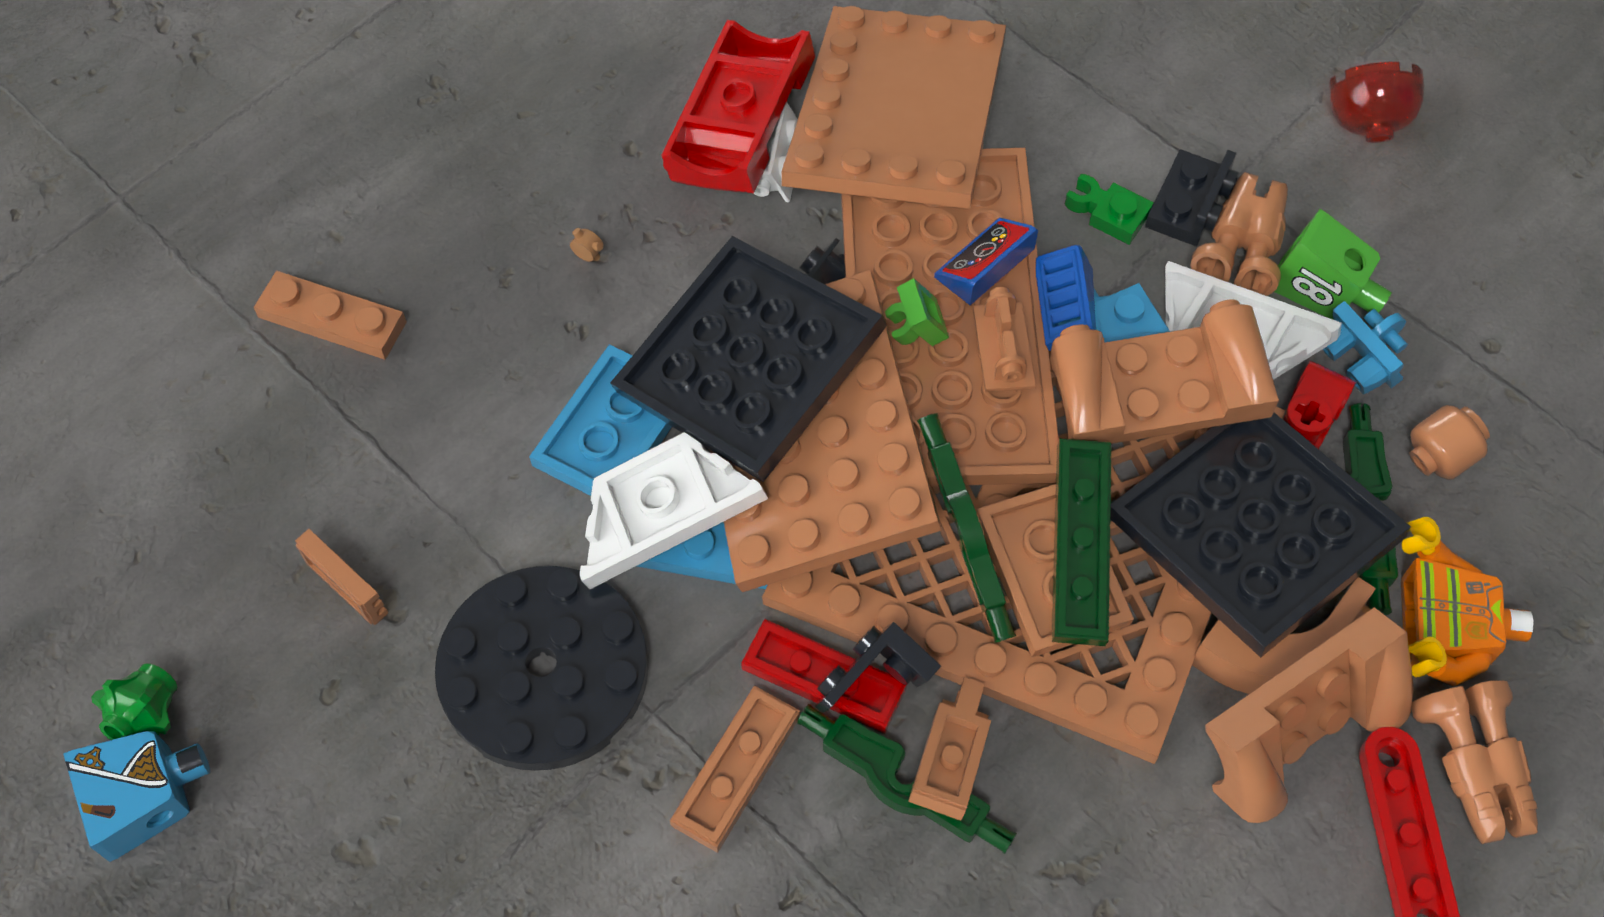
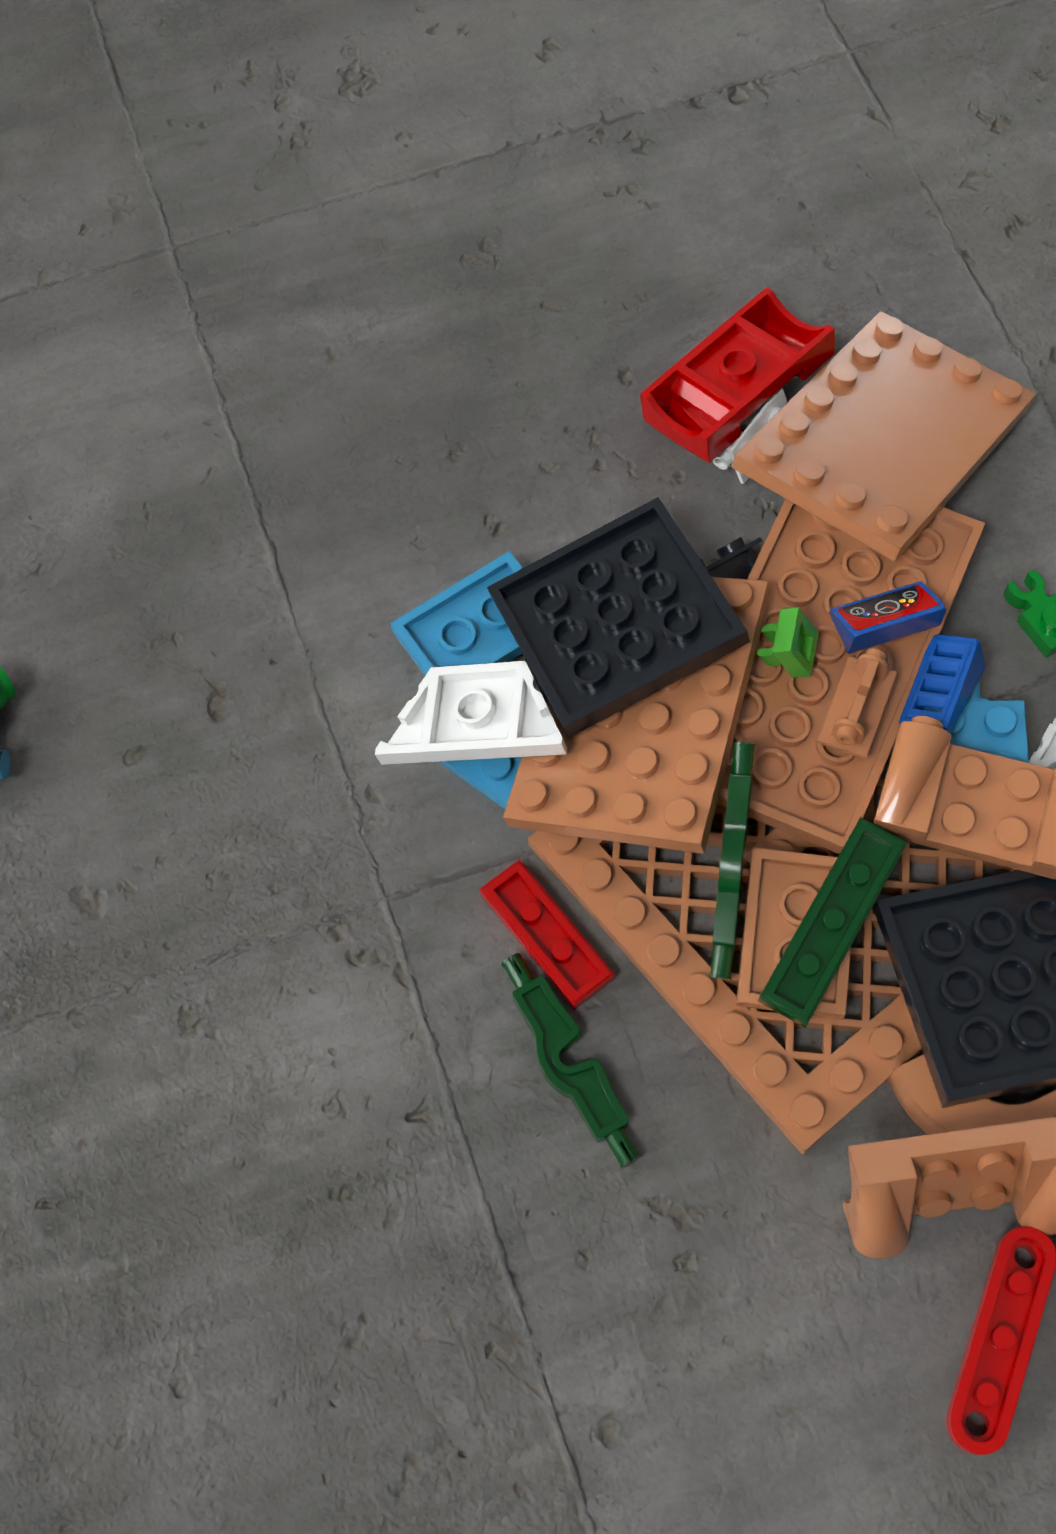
camera: 30 degrees right, 5 degrees up
(330, 314) = (291, 424): nougat plate -> none
(341, 577) = (184, 660): nougat tile -> none
(548, 718) = (319, 861): black plate -> none
(586, 244) = (538, 450): medium nougat piece -> none
(735, 769) = (428, 979): nougat tile -> none
(904, 661) = (615, 955): black bracket -> none
(952, 753) = (617, 1057): nougat hinge -> none

